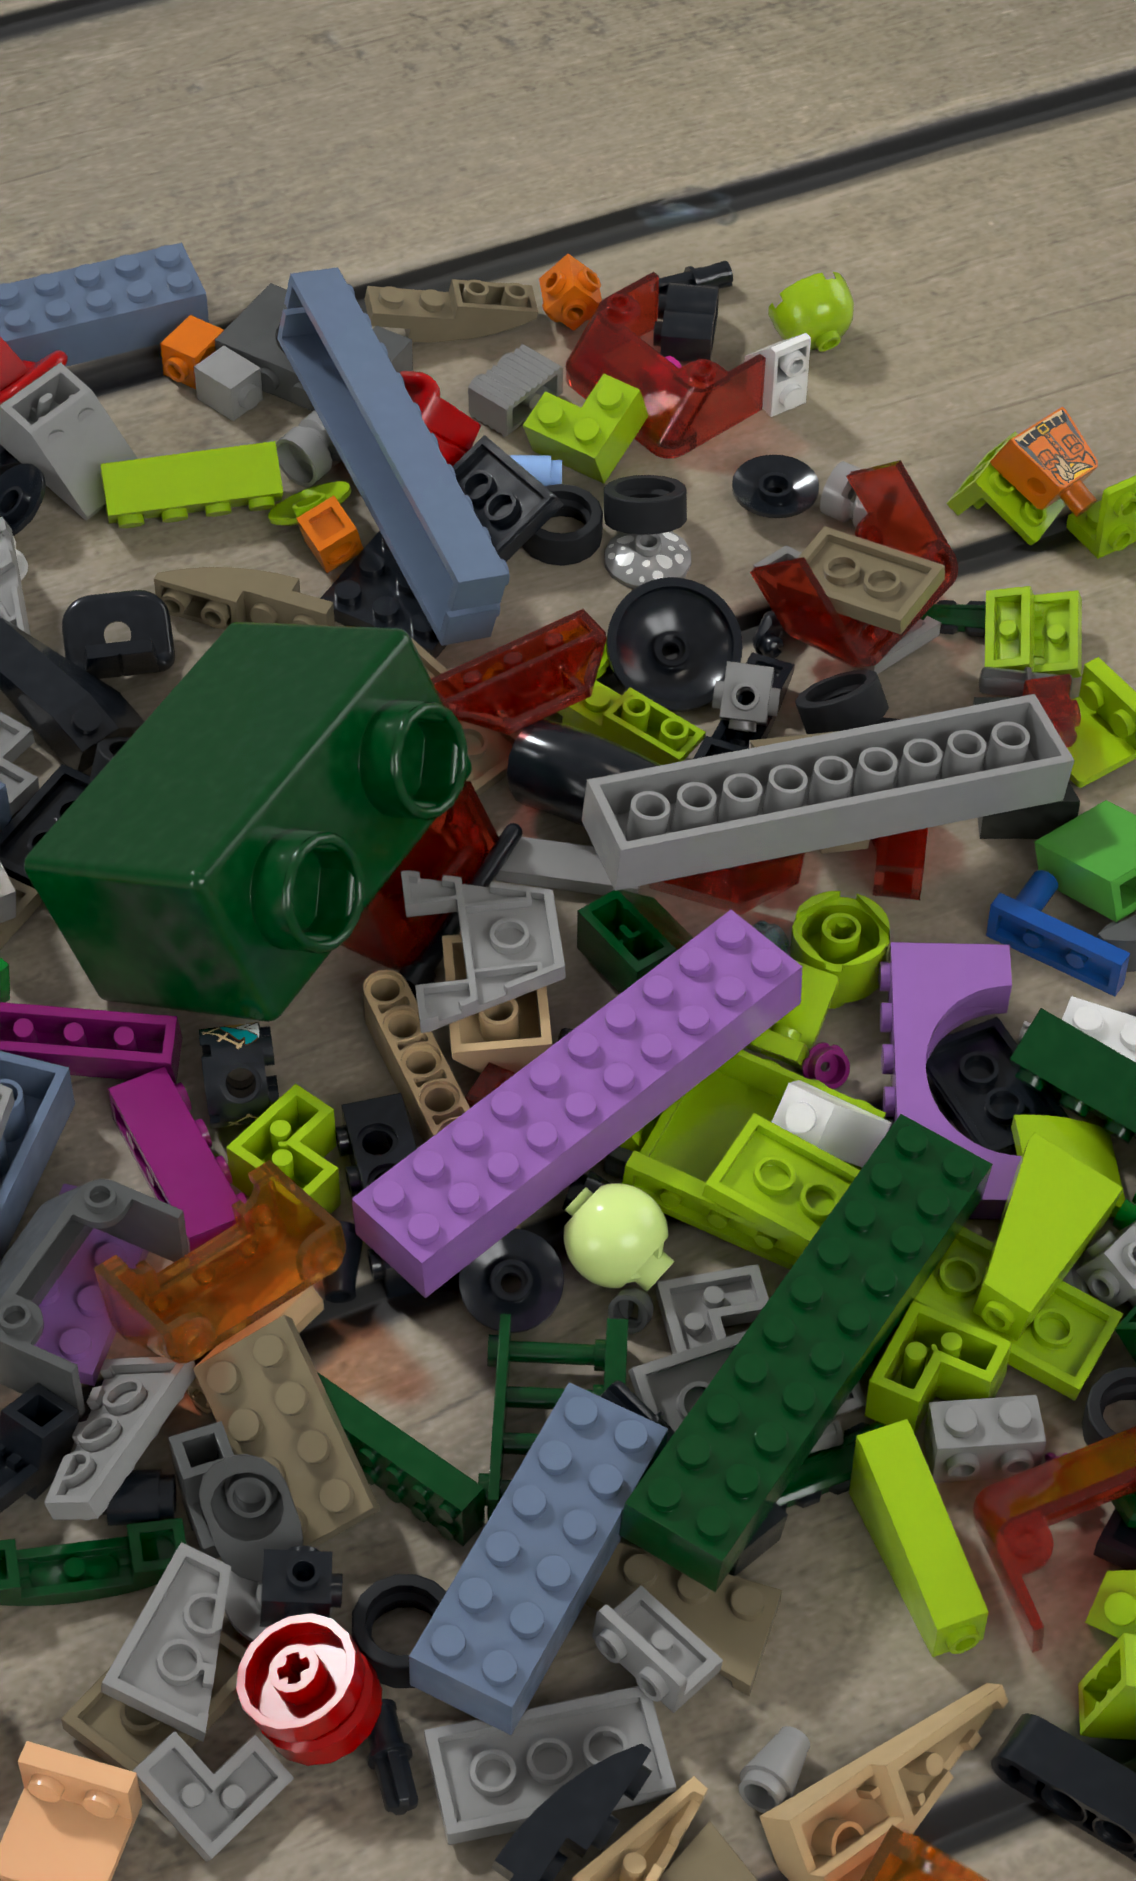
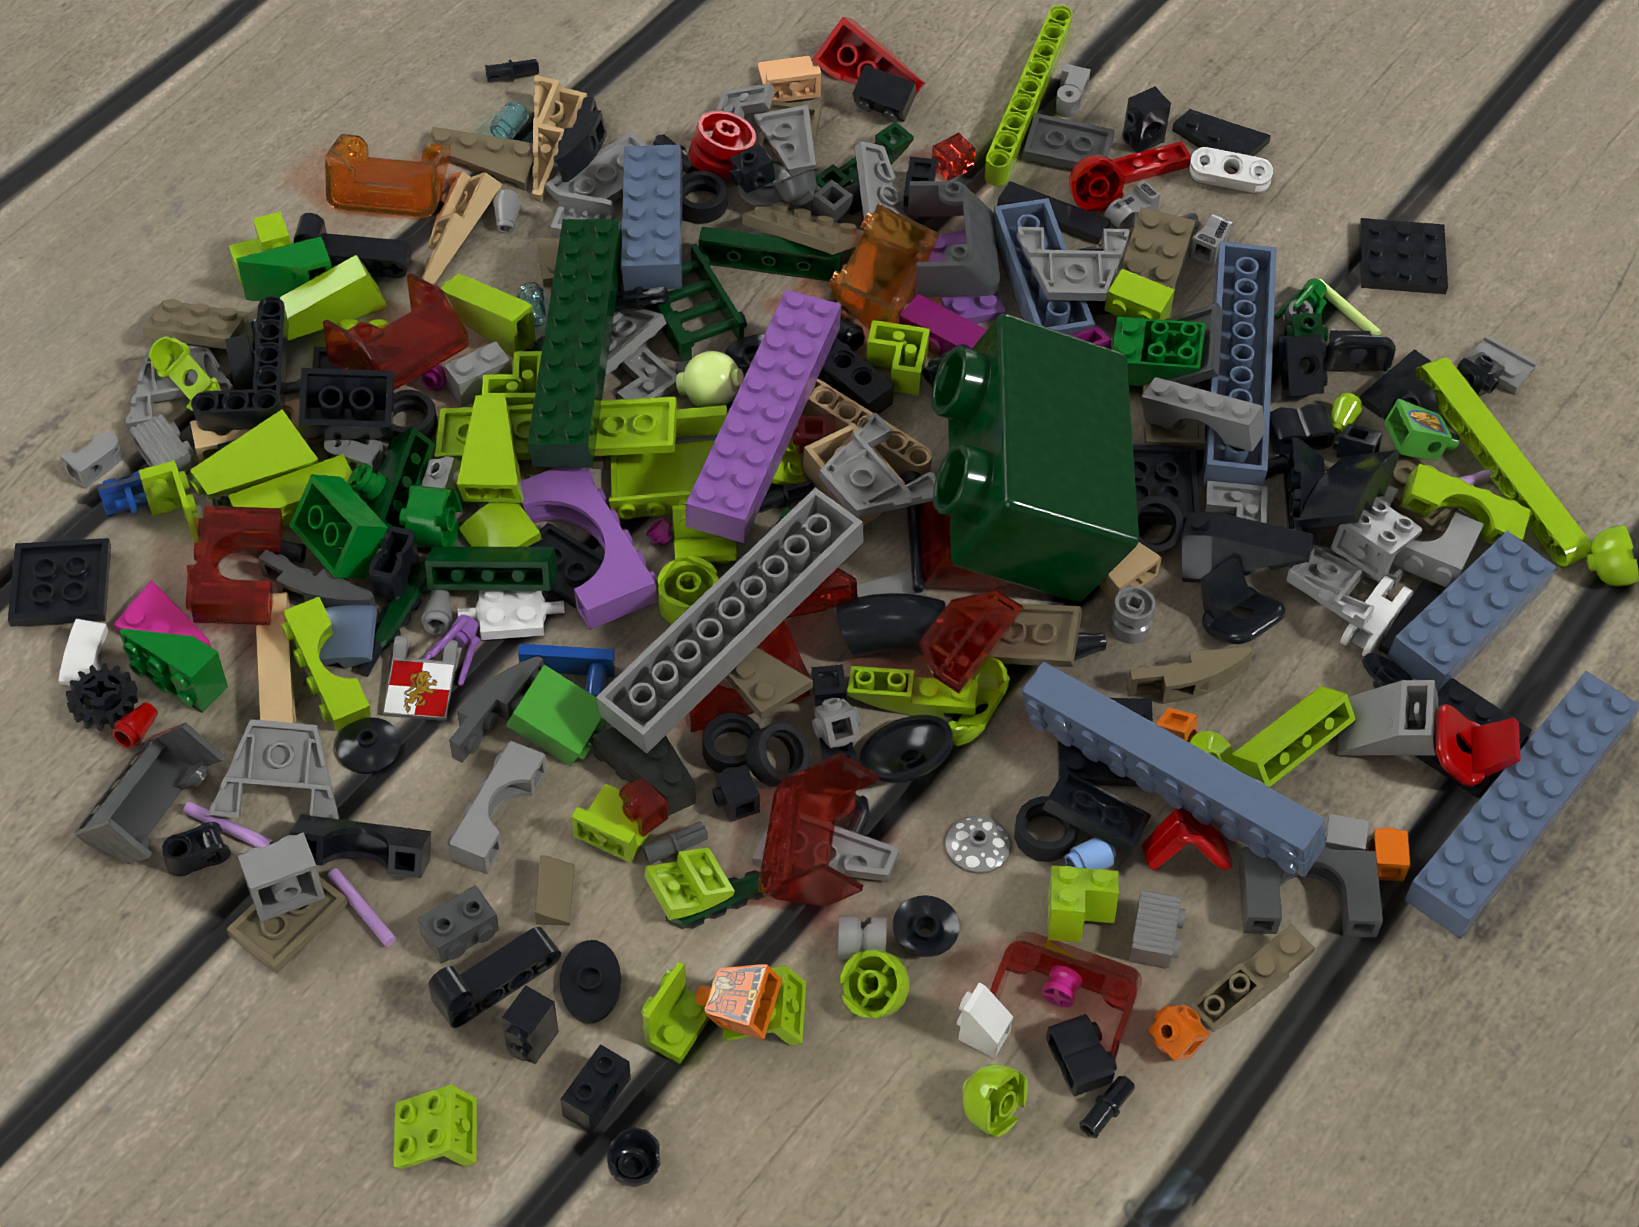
camera: 150 degrees right, 5 degrees up
(645, 504) = (1020, 847): black tyre -> none
(822, 1550) = (534, 295): none -> clear light blue cone
(830, 1123) = (639, 473): white slope -> none
(871, 437) = (874, 984): none -> lime cylinder
(872, 579) = (806, 809): dark tan plate -> none
(917, 691) = (736, 793): none -> black brick

